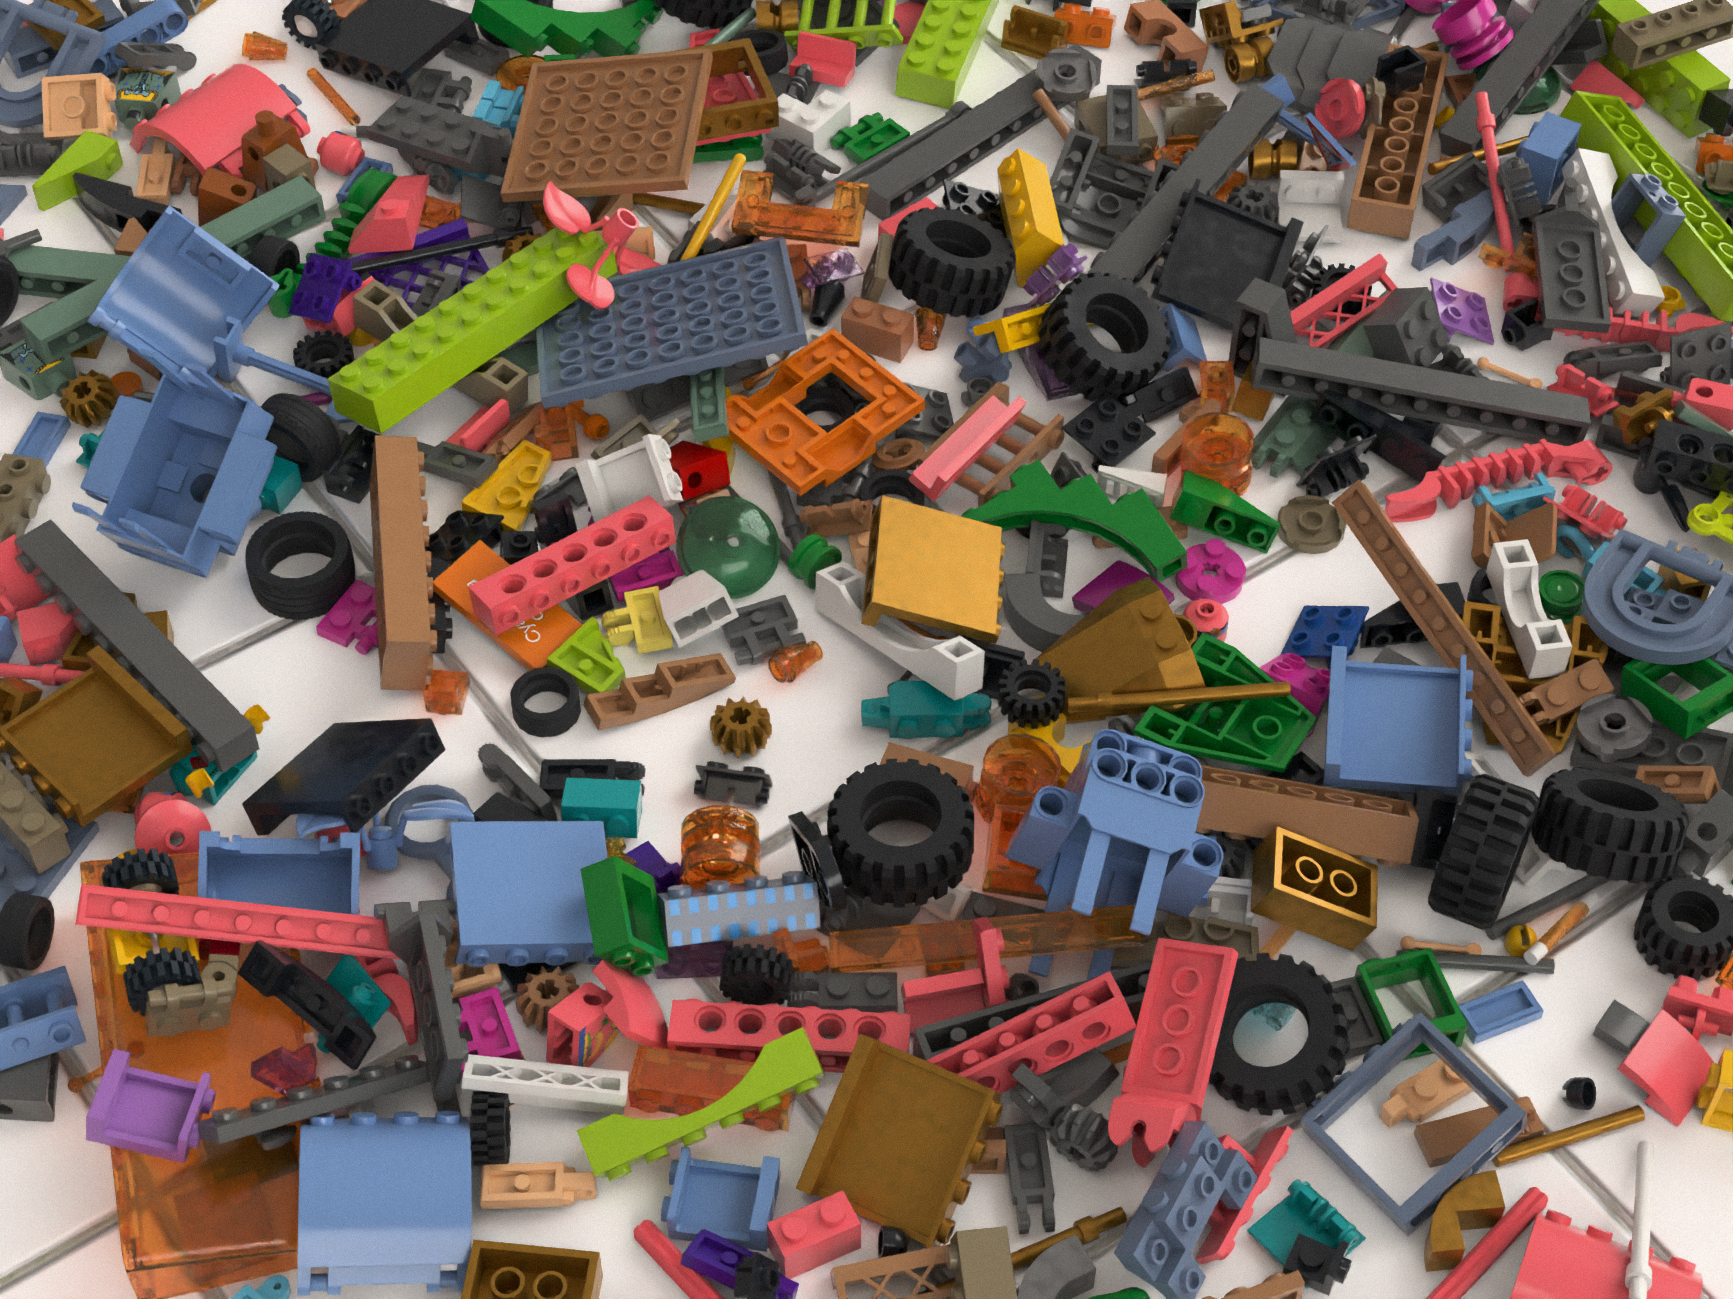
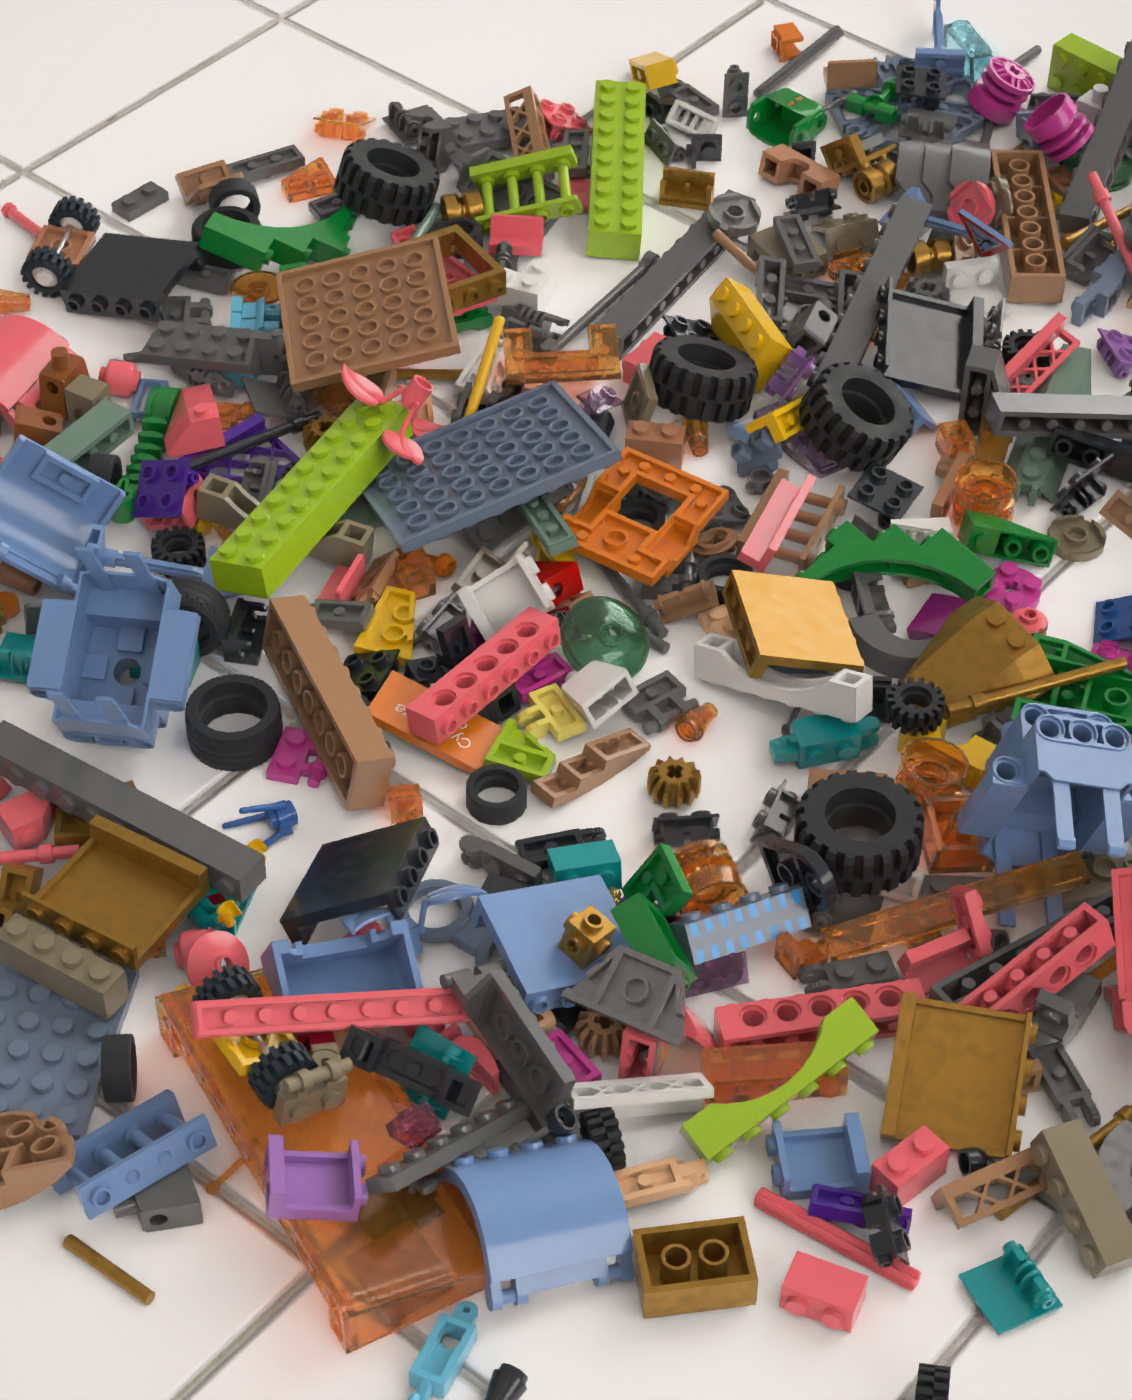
camera: 15 degrees left, 5 degrees down
(307, 679) = (278, 816): none -> blue plant
(333, 96) = (89, 334): clear orange bar -> none
(438, 1100) = (559, 1127): none -> black hinge
(549, 892) = (586, 936): none -> pearl gold brick
(574, 971) = (636, 994): none -> flat silver wing
(663, 844) = (660, 880): none -> green plate
(756, 975) = (776, 973): black tyre -> none
(812, 556) = (680, 637): green wheel -> none
(823, 793) = (778, 804): none -> dark grey hinge
(868, 137) = (579, 293): green plate -> none
(1083, 1137) = (1099, 1044): dark grey gear -> none
(1087, 26) = (731, 176): orange bracket -> none
(1098, 223) = (815, 322): none -> dark grey torso
(1162, 395) = (915, 456): black hinge -> none
(1176, 85) = (828, 208): clear orange bar -> none
(1400, 69) = (1014, 166): black window -> none
(1407, 328) = (1098, 367): dark grey brick -> none

